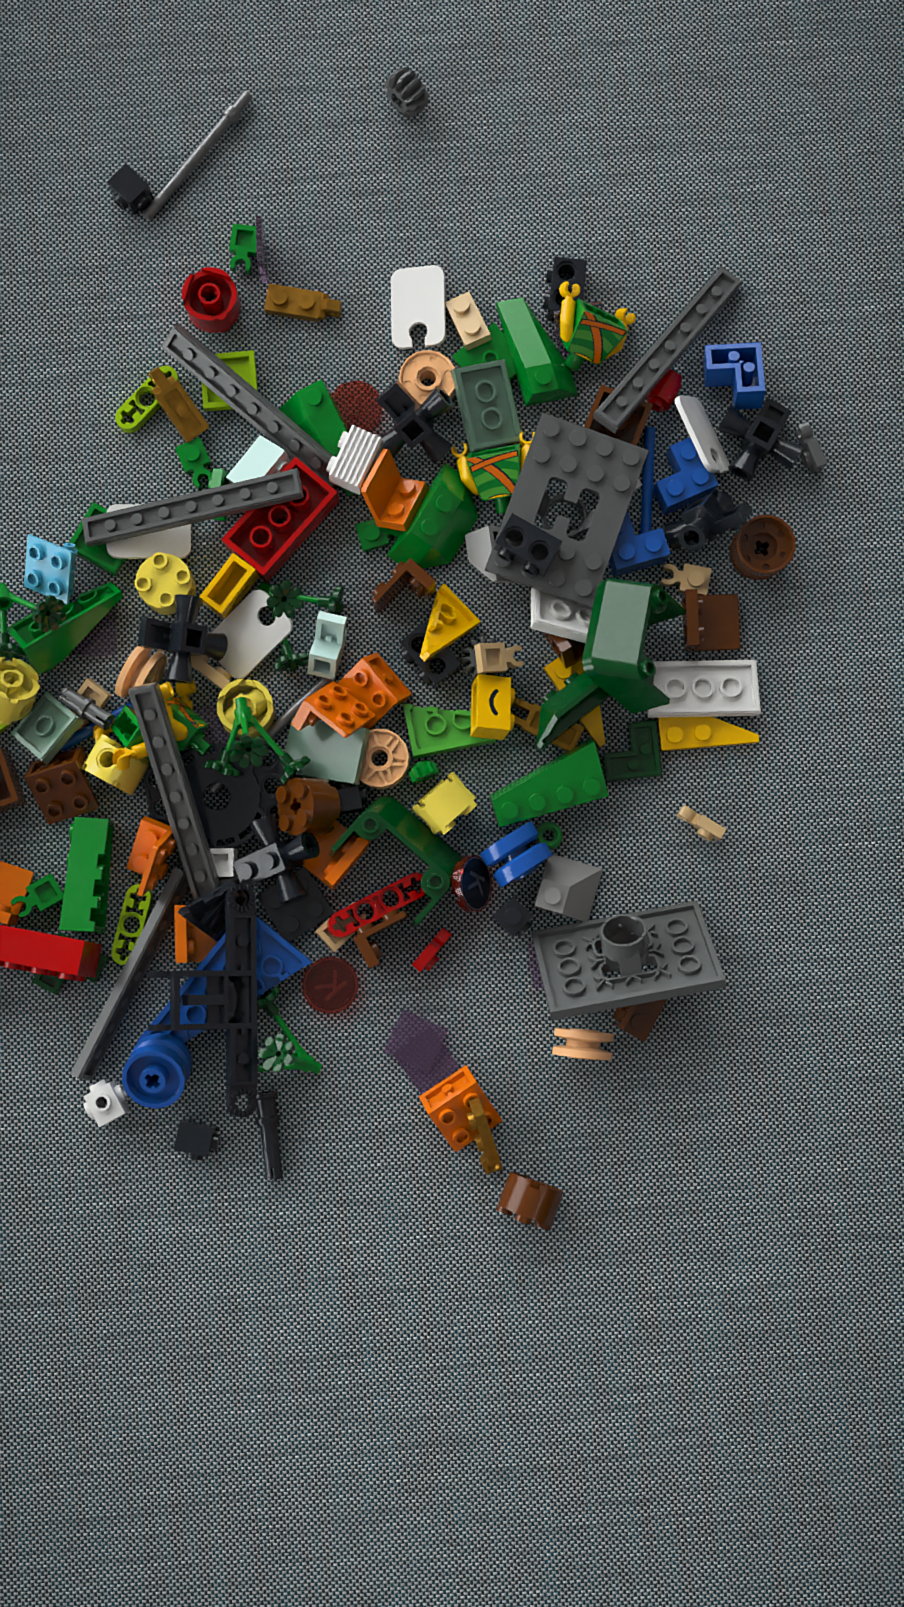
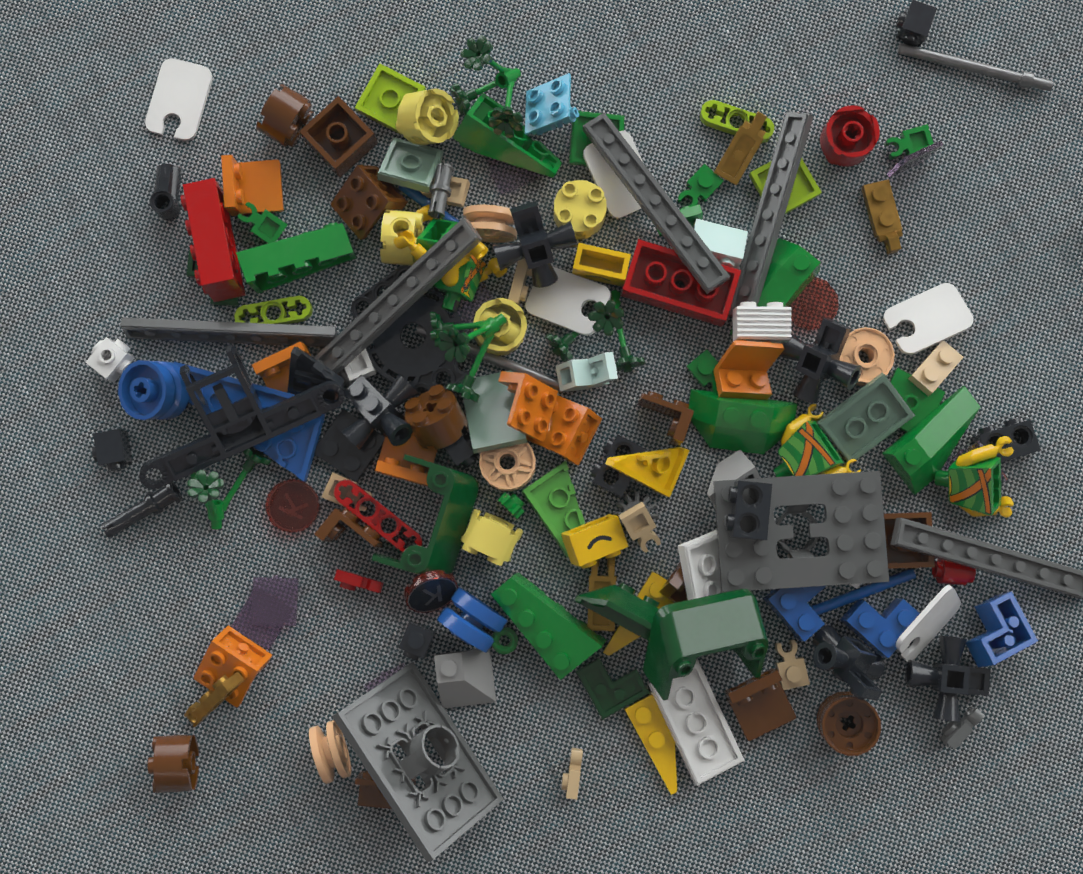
camera: 65 degrees right, 0 degrees up
(150, 852) = (337, 301): orange bracket -> none

